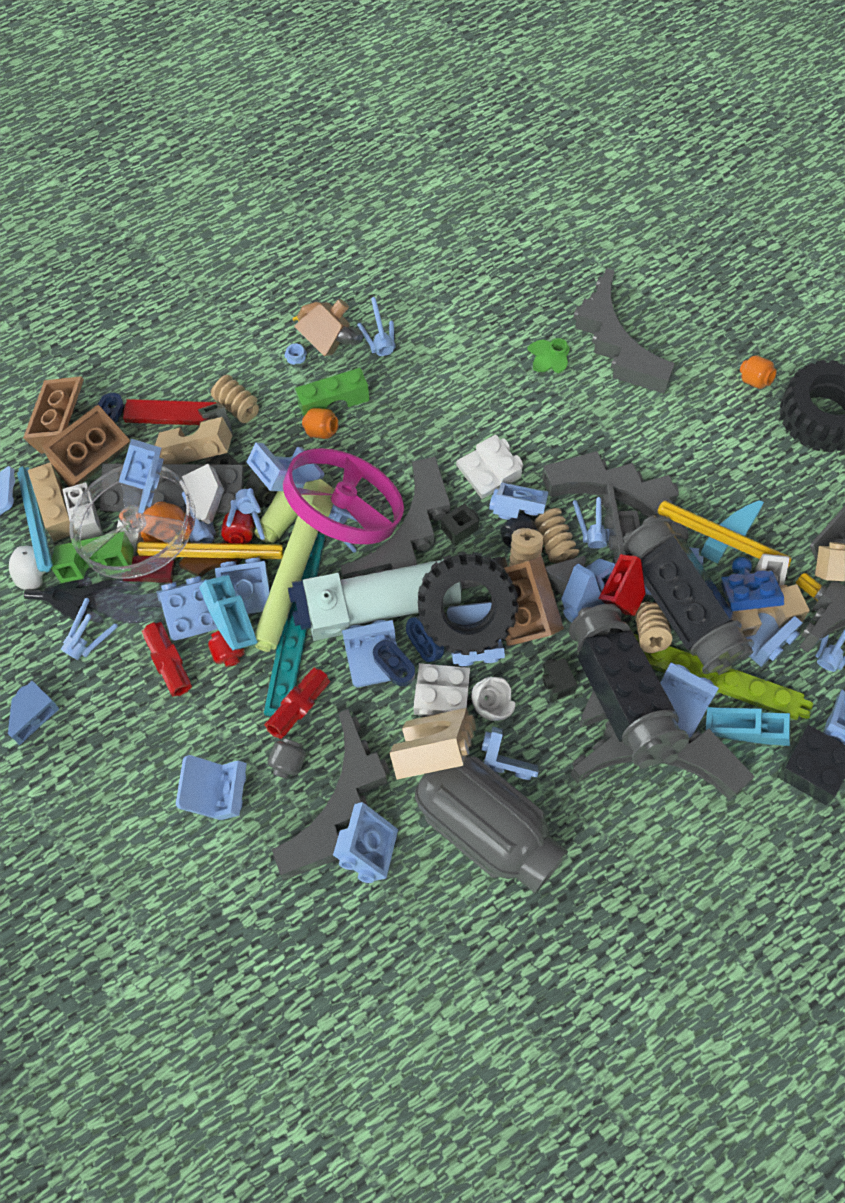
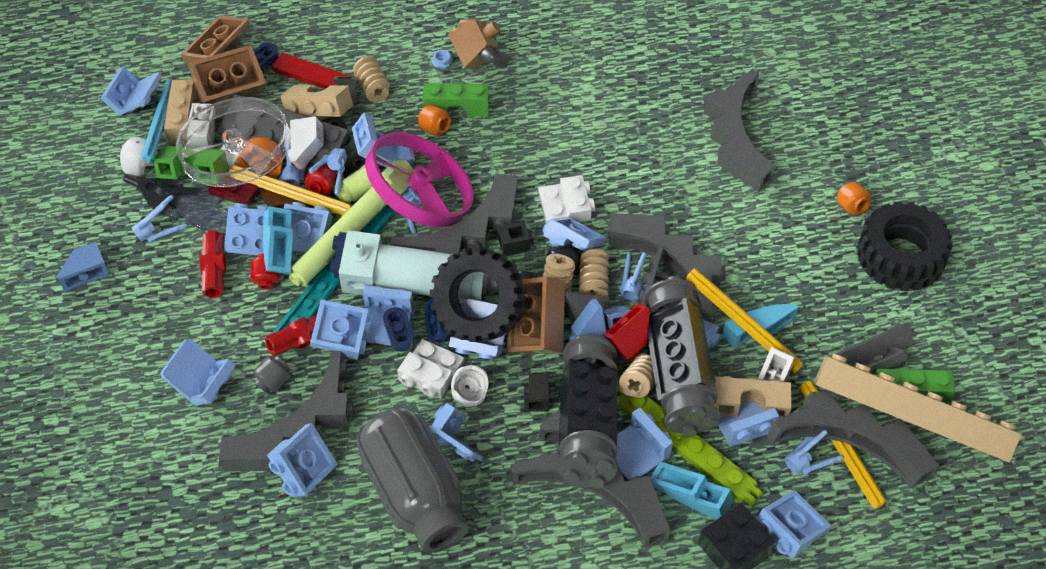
camera: 20 degrees right, 10 degrees down
(141, 470) = (255, 101): light blue bracket -> none
(337, 685) = (341, 329): none -> light blue plate
(383, 343) = (521, 72): light blue plant -> none
(433, 743) = (392, 394): tan arch -> none
(548, 357) = (667, 127): bright green plate -> none
(752, 590) = (745, 373): blue plate -> none

